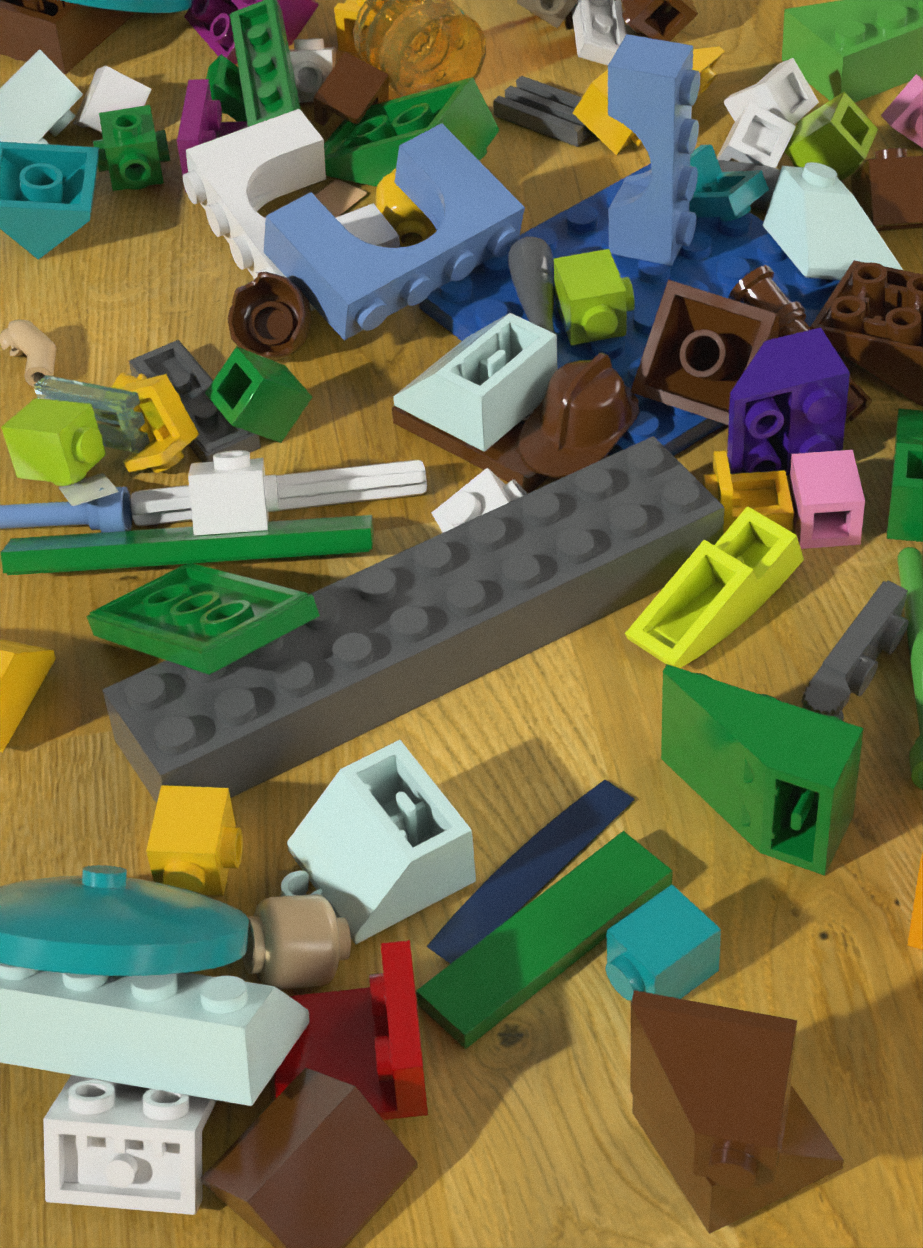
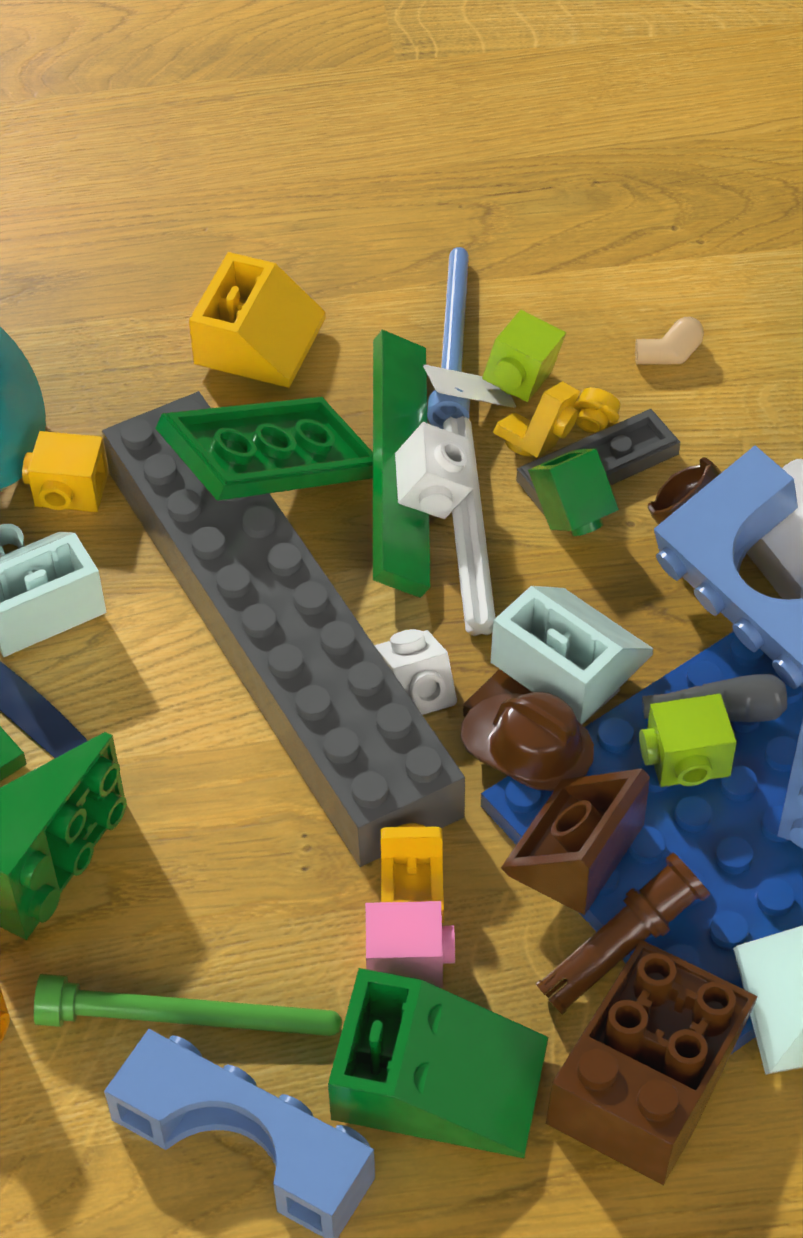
camera: 90 degrees right, 5 degrees up
(109, 406) = (565, 367): clear light blue tile -> none
(717, 589) = (295, 845): neon yellow slope -> none
(787, 403) = (509, 900): dark purple slope -> none
(852, 660) = (178, 939): dark grey hinge -> none

